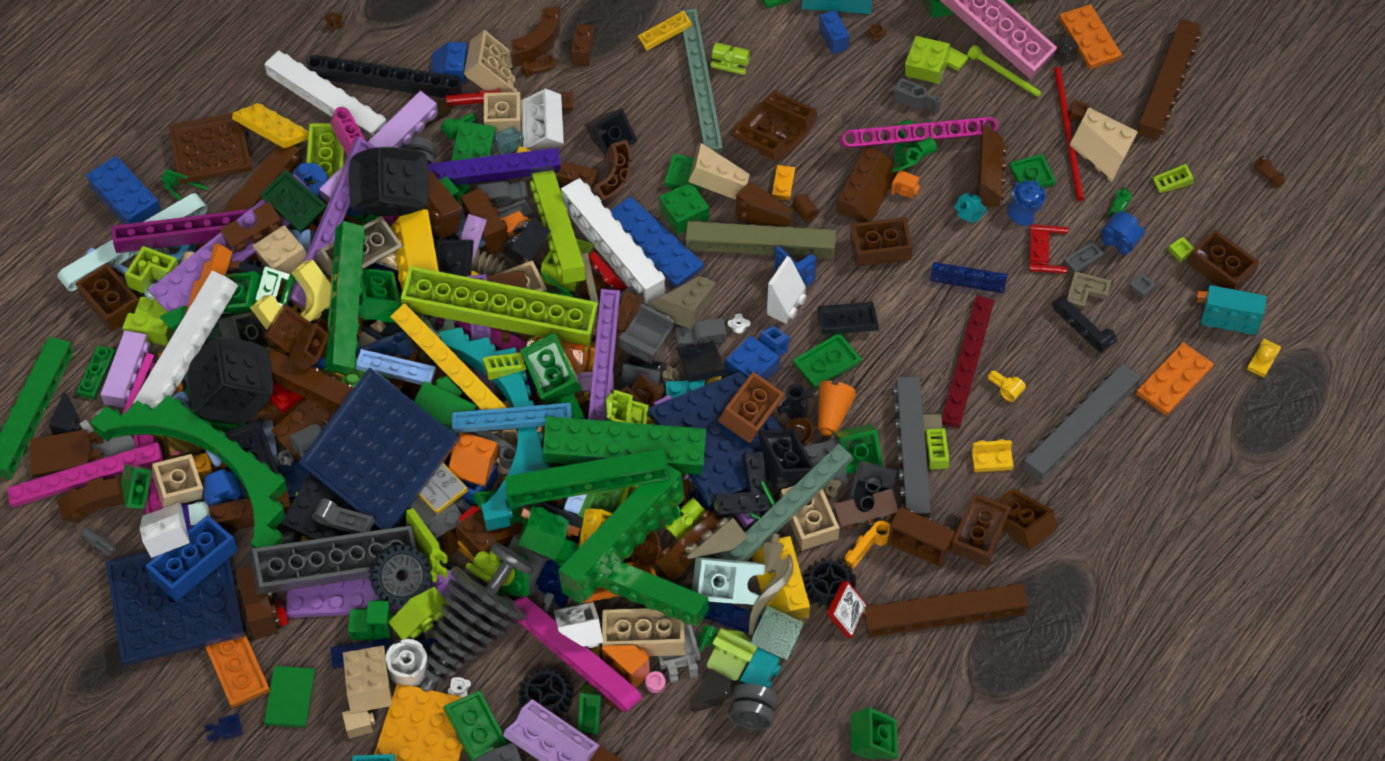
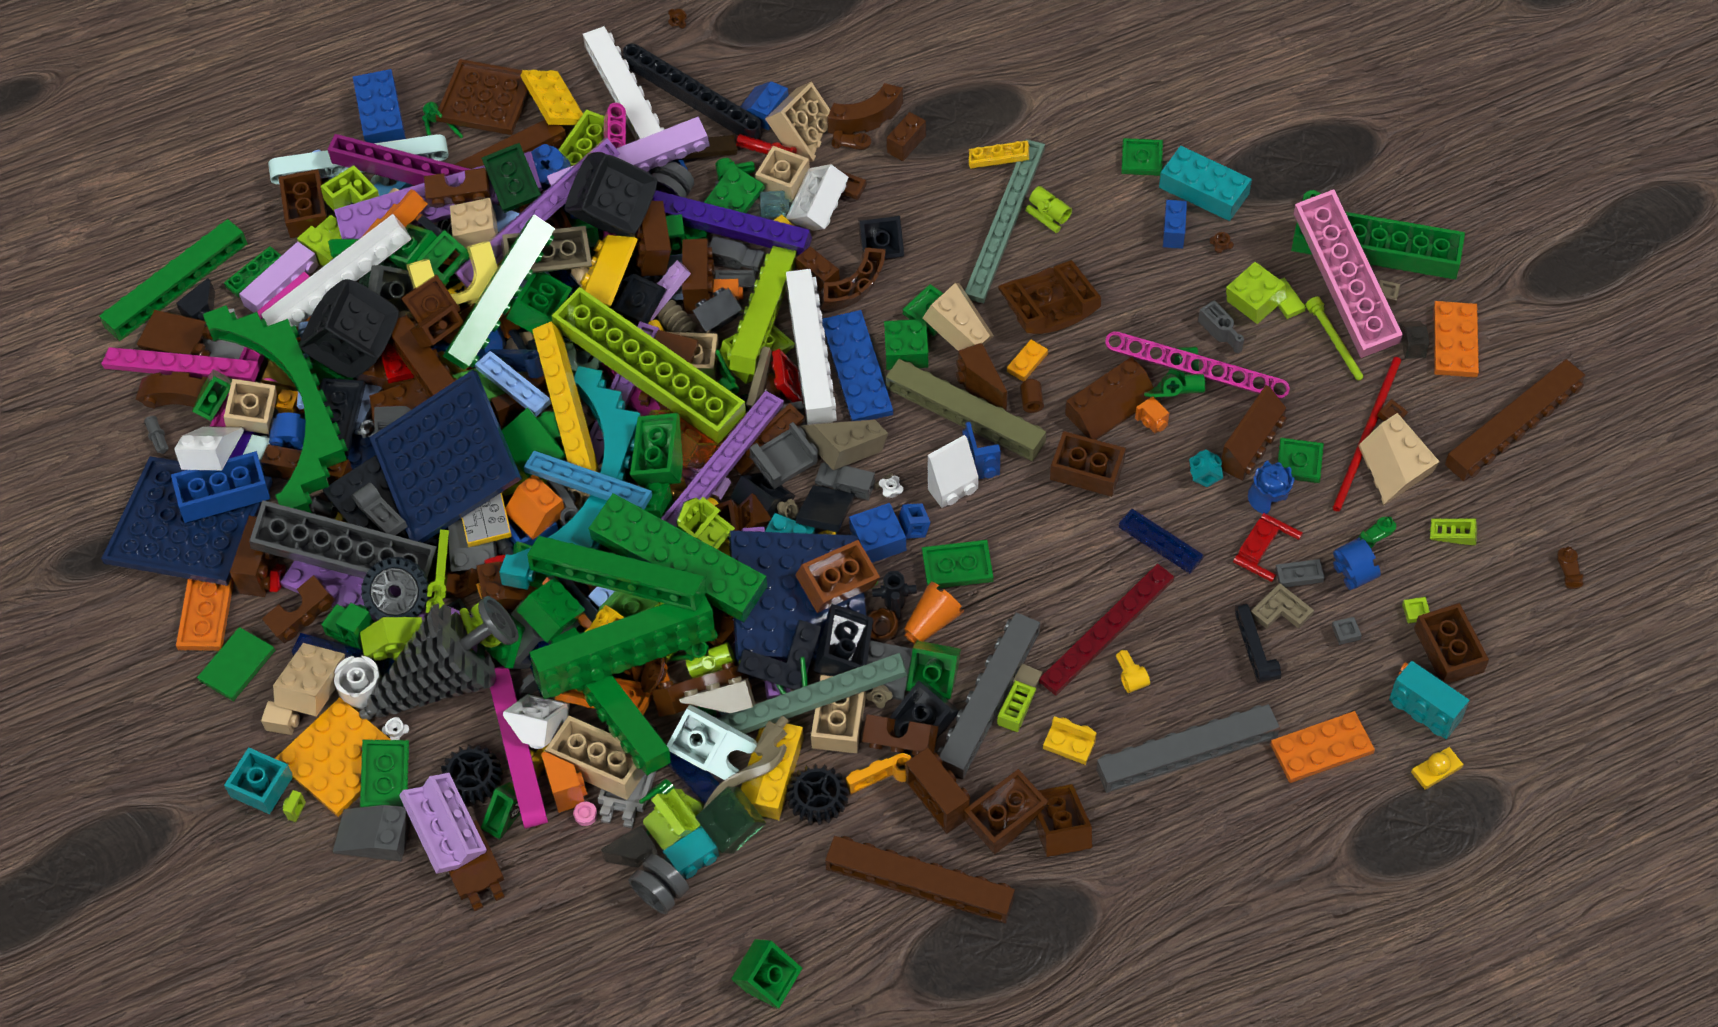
camera: 30 degrees right, 0 degrees up
(227, 728) = (161, 667): clear blue plate -> none
(315, 645) = (314, 601): none -> reddish brown arch
(497, 372) = (613, 431): lime slope -> none
(846, 609) = (815, 829): tile -> none
(847, 318) = (1005, 529): black tile -> none

